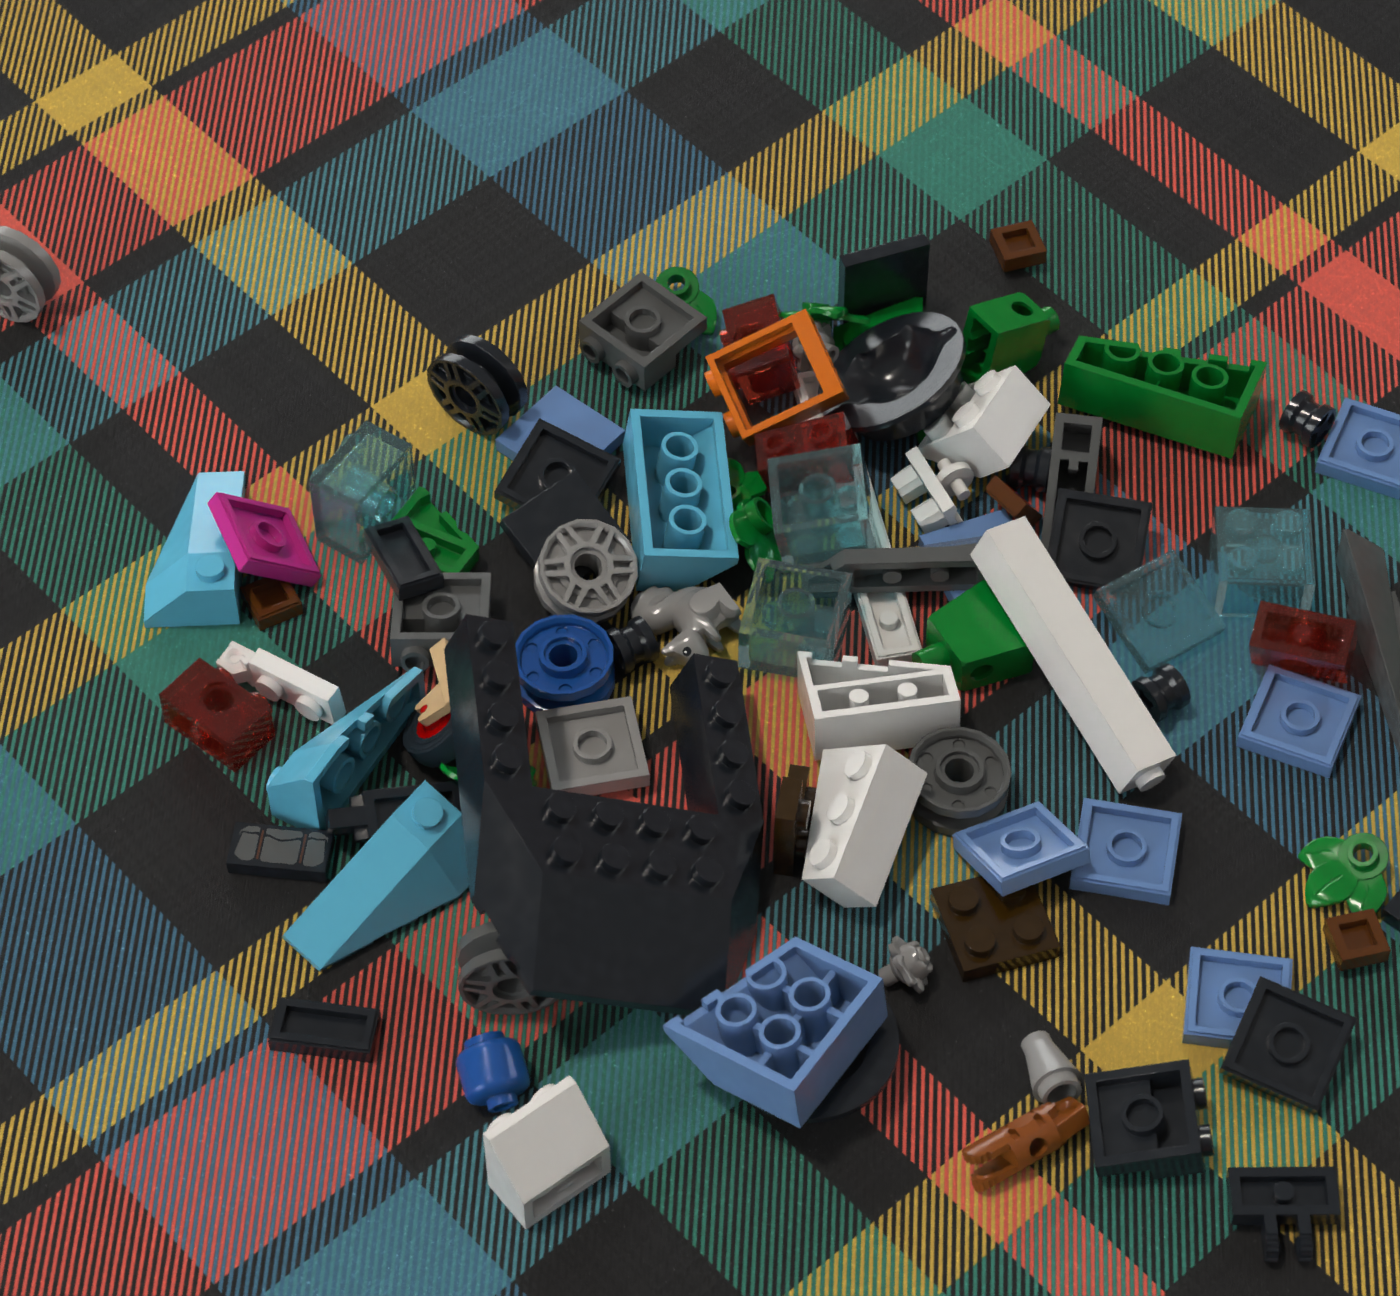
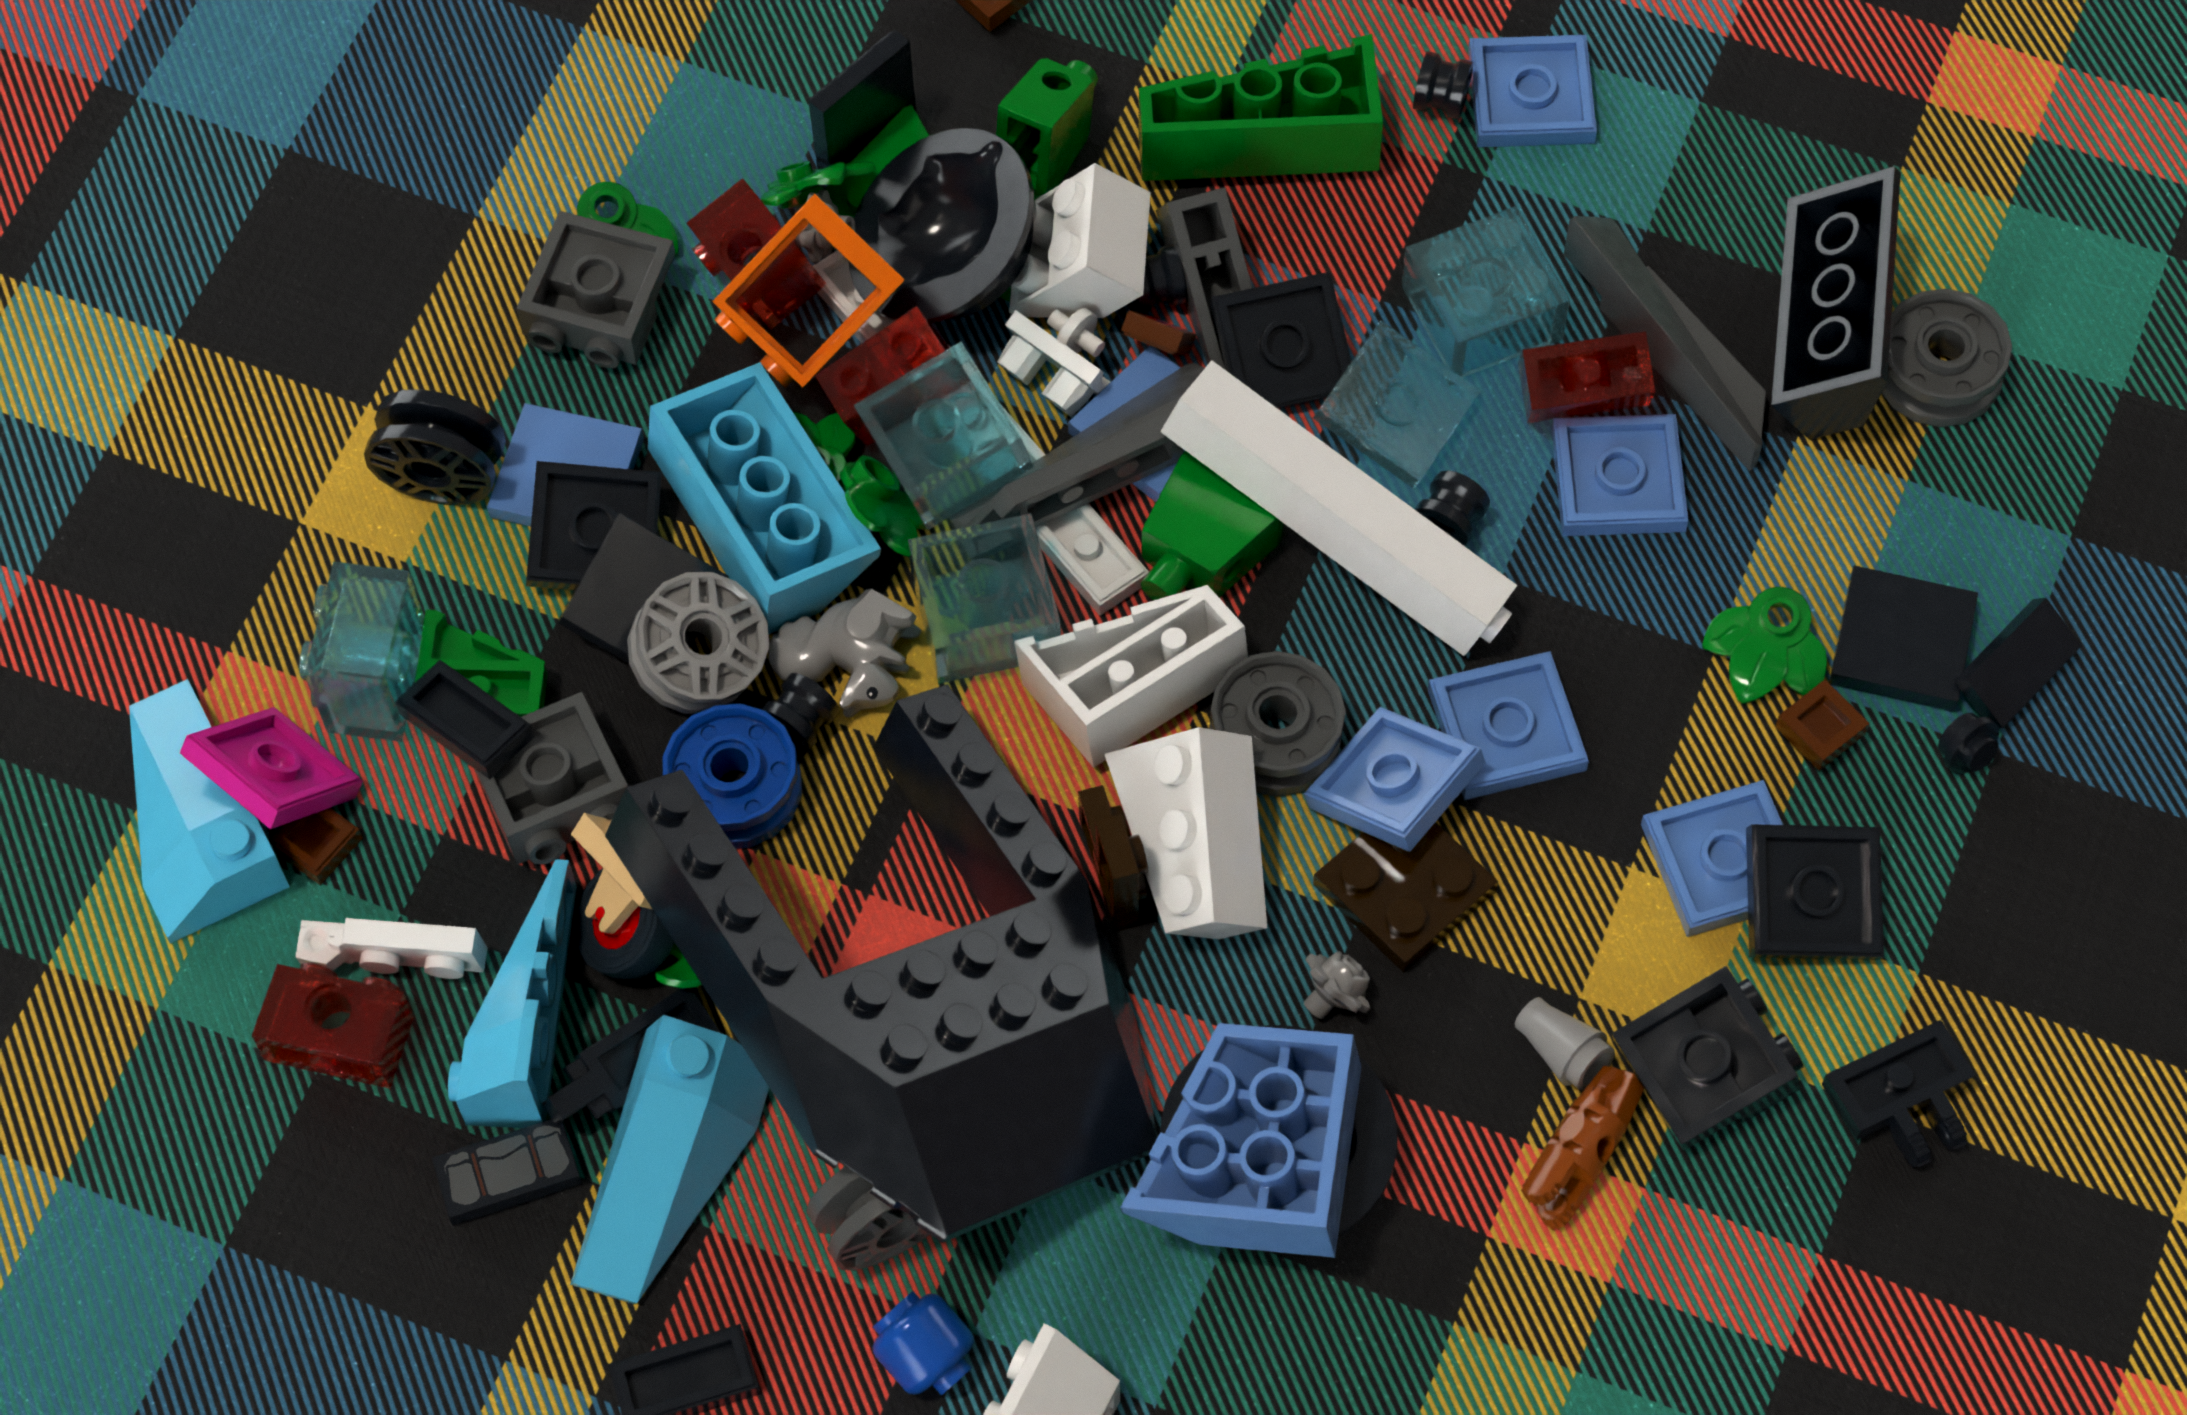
camera: 25 degrees left, 10 degrees up
(593, 747) = (824, 867): light grey plate -> none

